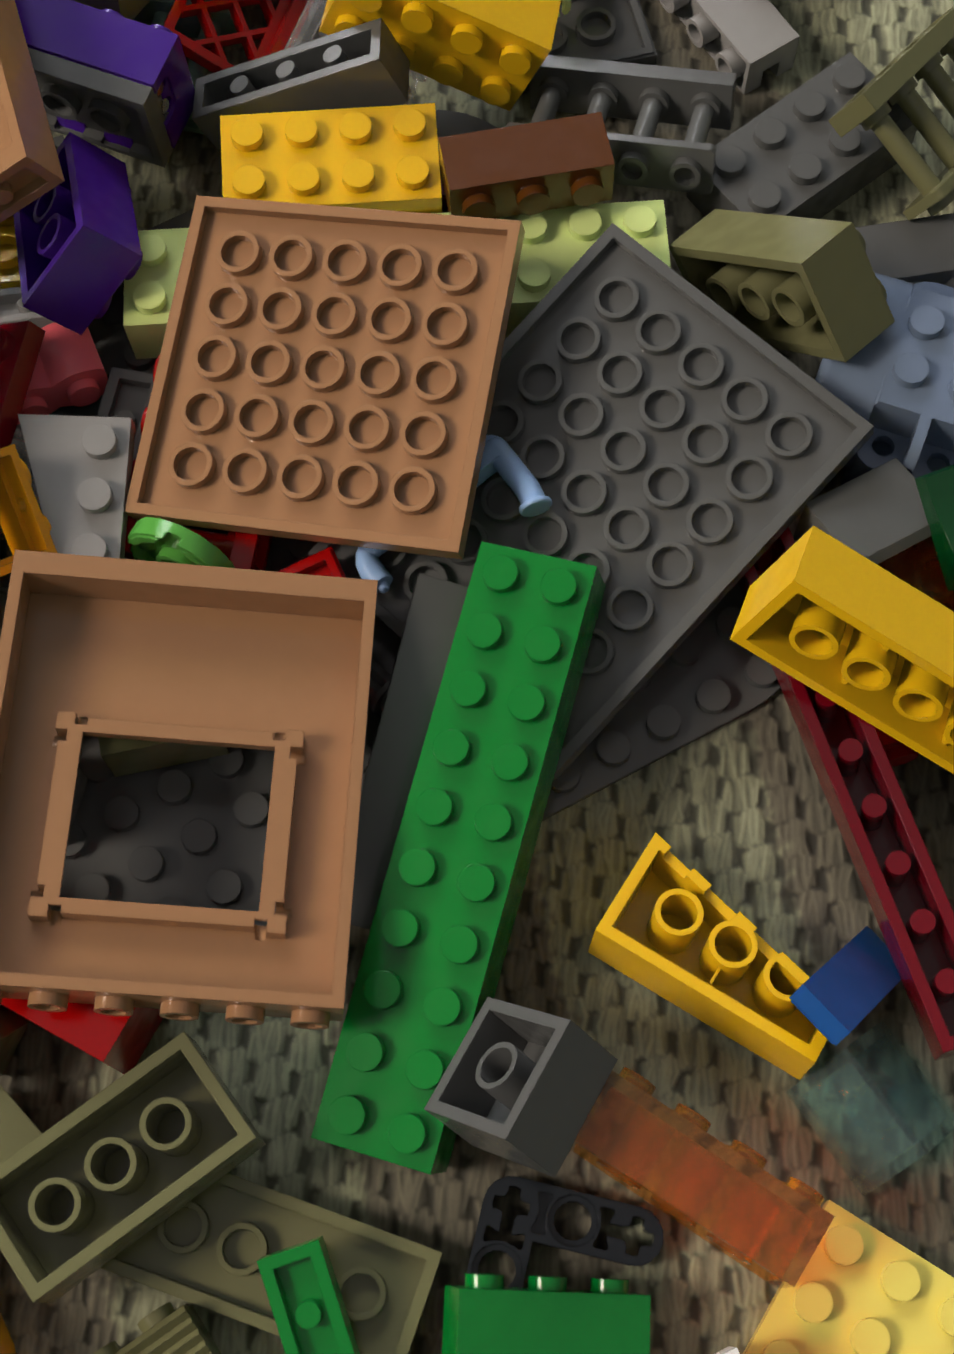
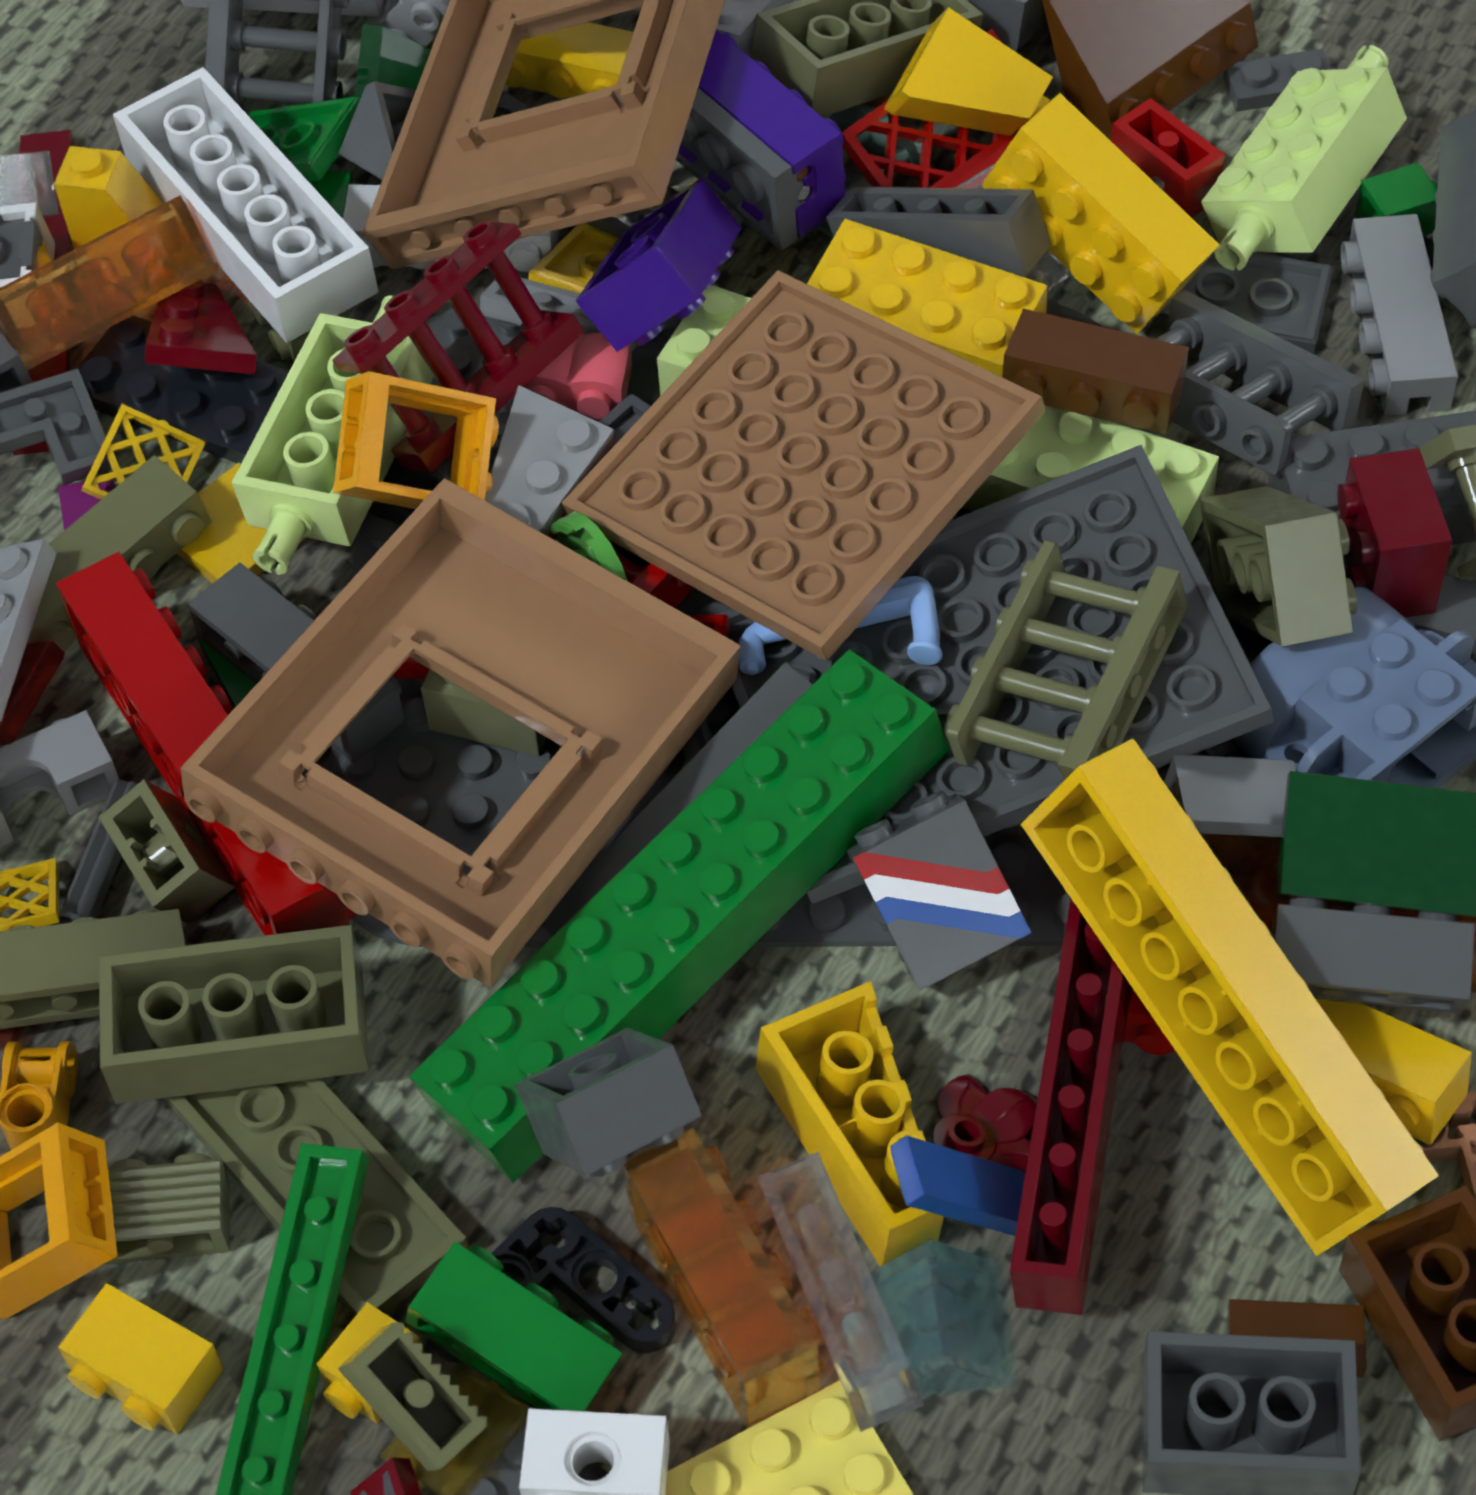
camera: 30 degrees right, 15 degrees down
(664, 717) = (938, 888): none -> panel
(730, 491) = (1104, 707): none -> olive fence
(796, 1133) = (840, 1292): none -> clear brick
(807, 896) = (989, 1123): none -> dark red plate
(861, 185) = (1395, 530): none -> dark red brick

